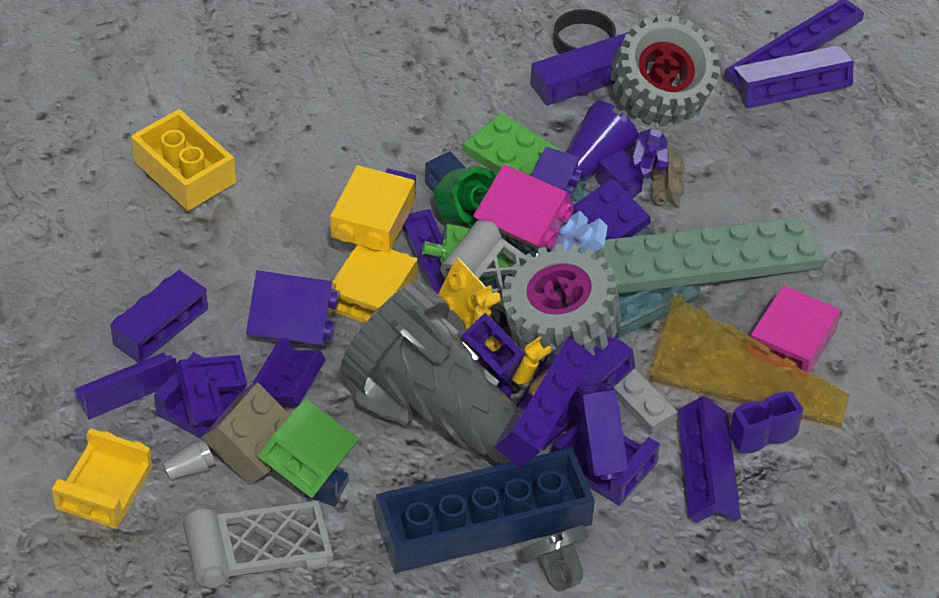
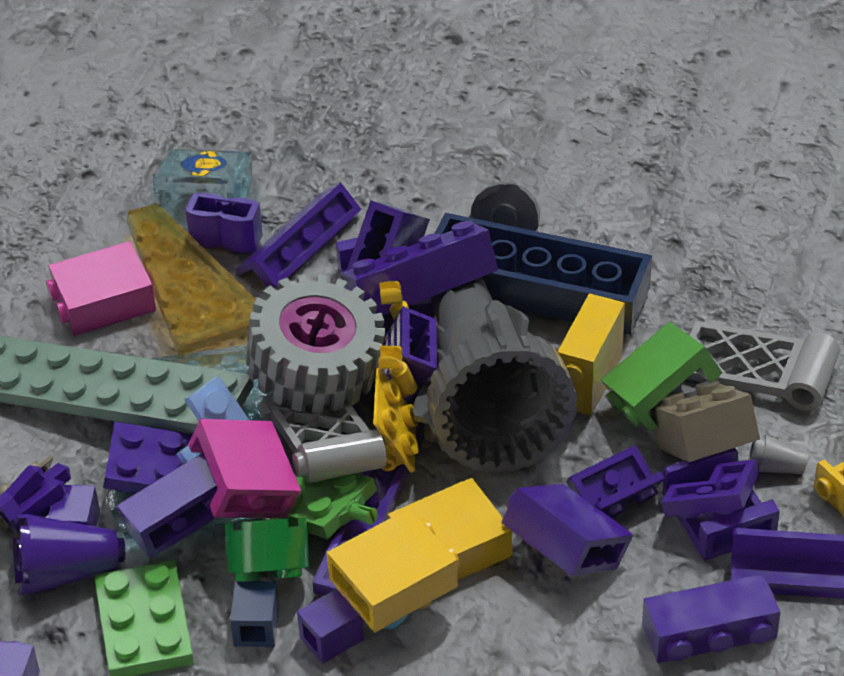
camera: 140 degrees left, 5 degrees down
(379, 445) = (593, 348): none -> yellow brick
(826, 454) = (204, 167): none -> clear light blue panel

